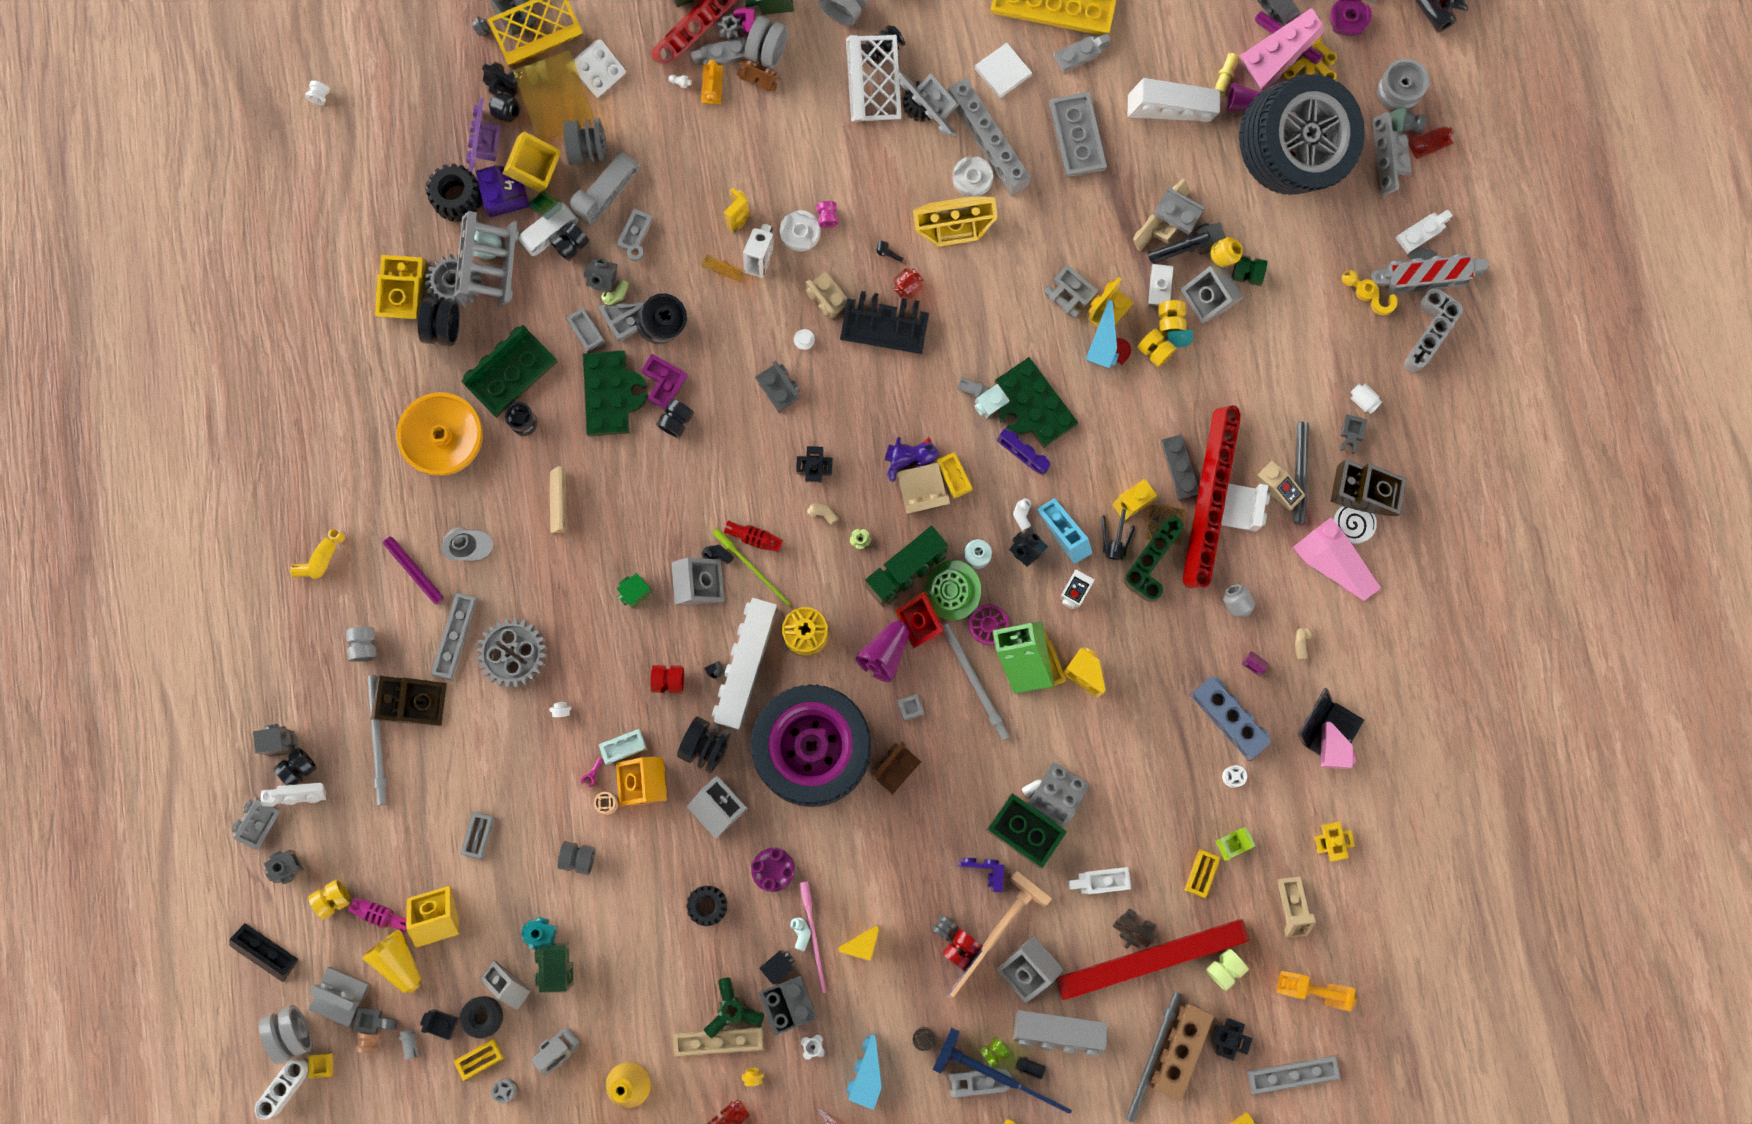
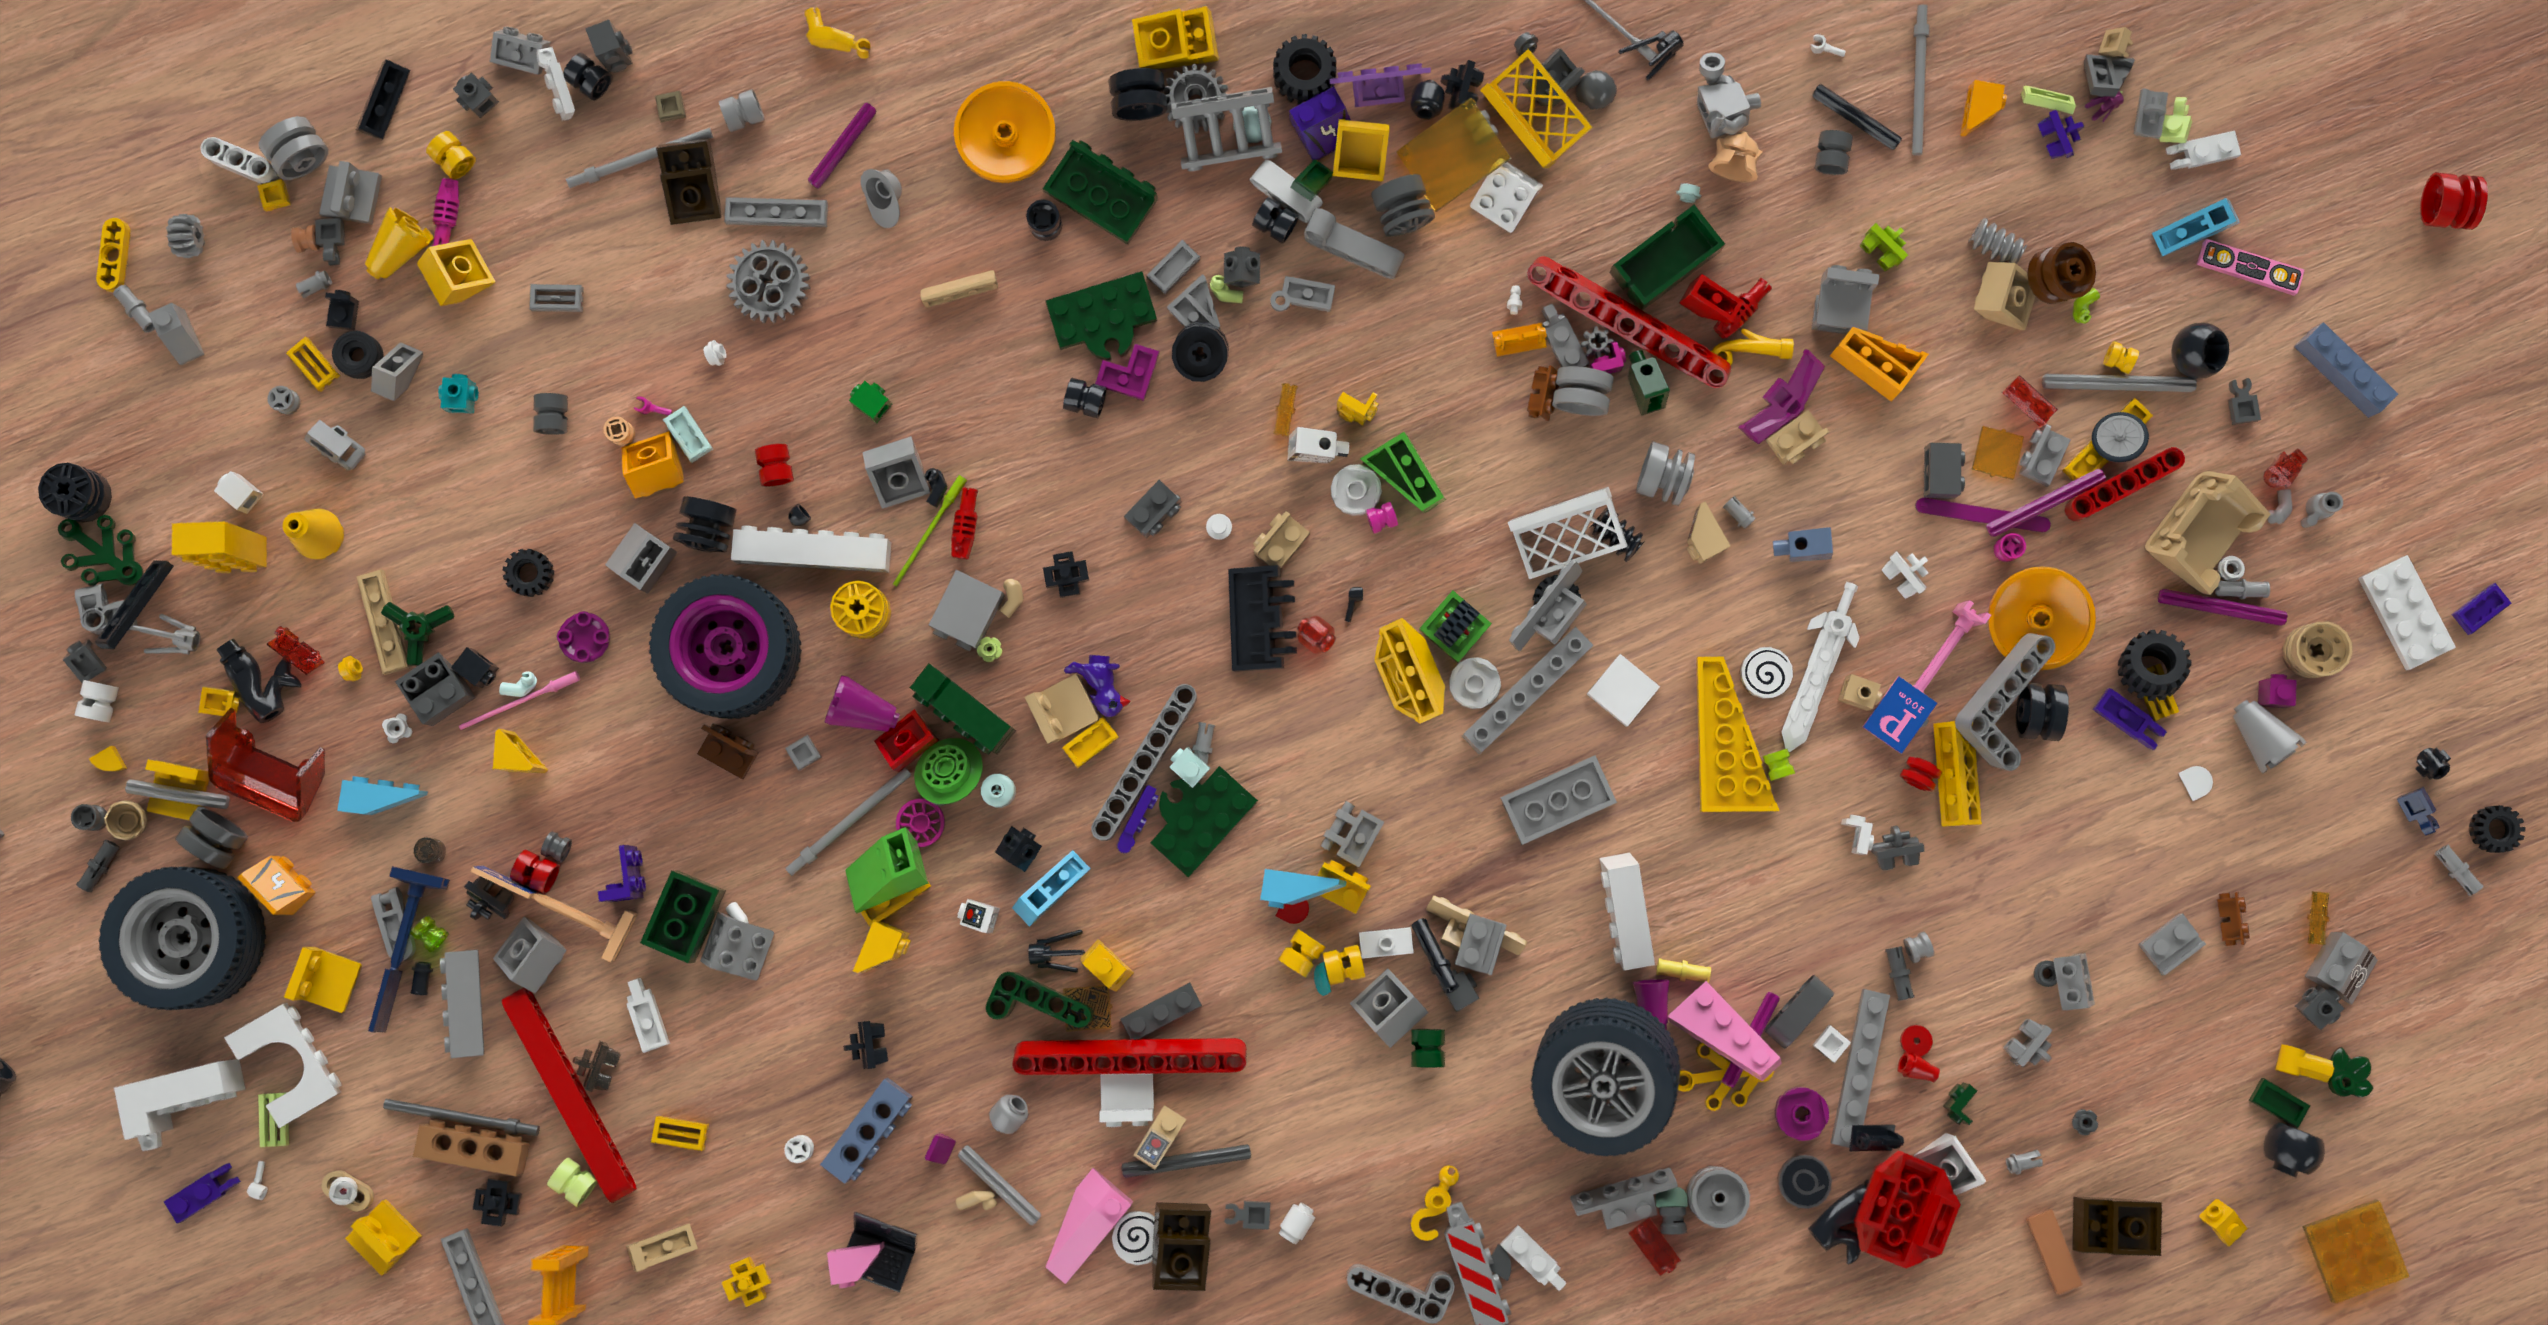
camera: 80 degrees right, 5 degrees up
(339, 705) = (670, 106): none -> dark tan tile
(555, 968) = (419, 420): clear green brick -> none
(797, 186) = (1405, 470): none -> bright green wedge
(825, 549) = (966, 611): none -> light grey brick
(925, 178) = (1455, 626): none -> bright green plate
(978, 998) = (497, 904): none -> black hips
(984, 445) = (1145, 749): none -> light grey beam
(1020, 513) = (1061, 831): white arm -> none
(1081, 52) = (1670, 781): light grey hinge -> none
(1161, 705) = (870, 1056): none -> black hips
(1226, 252) = (1438, 1013): yellow head -> none
(1235, 843) = (720, 1163): lime bracket -> none
(1293, 622) = (999, 1185): none -> light grey axle
(1400, 26) = (1804, 1181): none -> black tile

